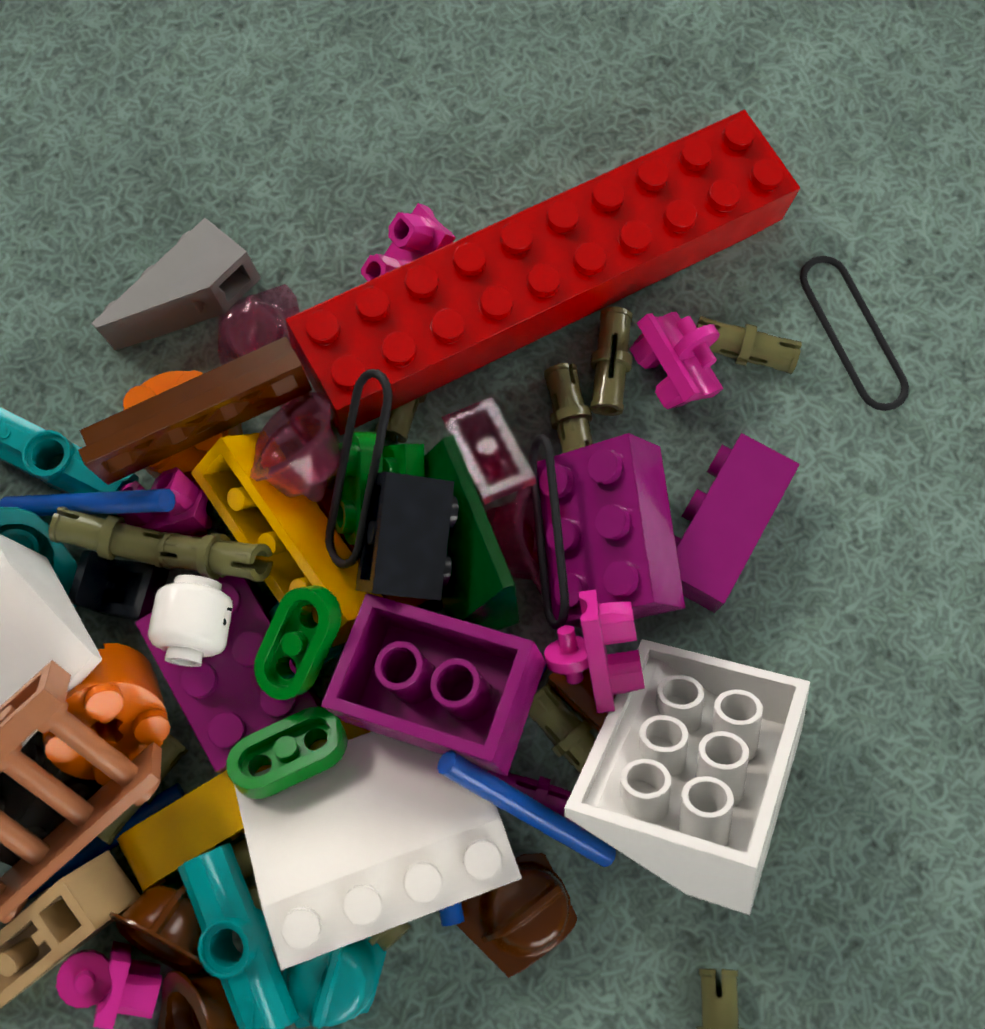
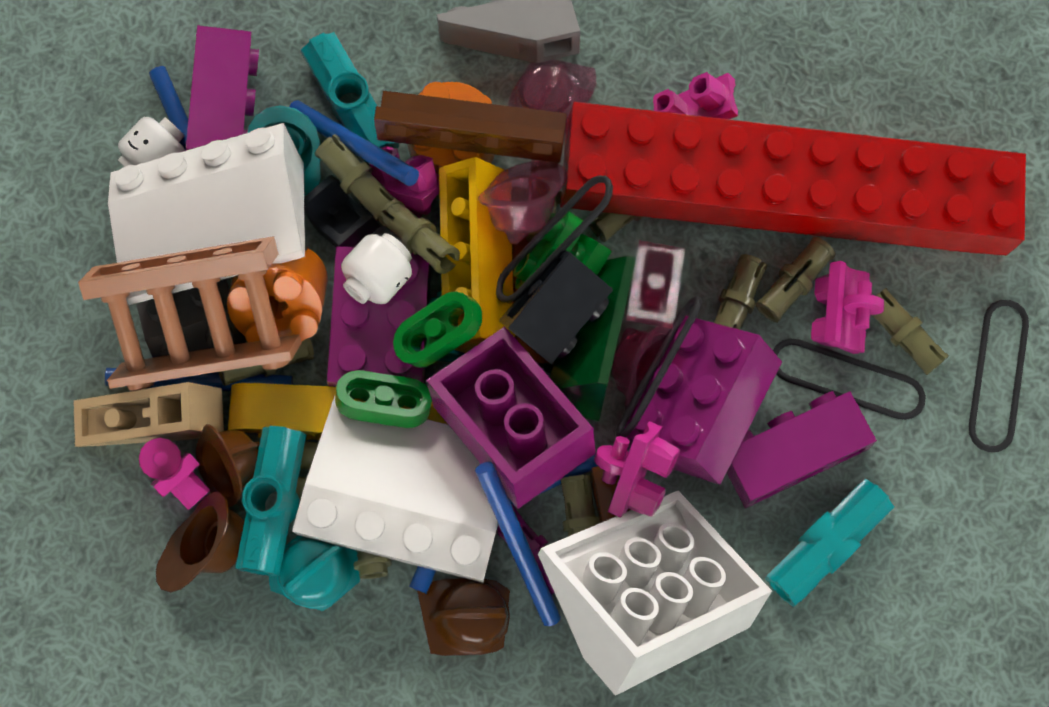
camera: 30 degrees right, 0 degrees up
(723, 402) = (904, 416): none -> black piece
(820, 593) = (829, 542): none -> teal piece

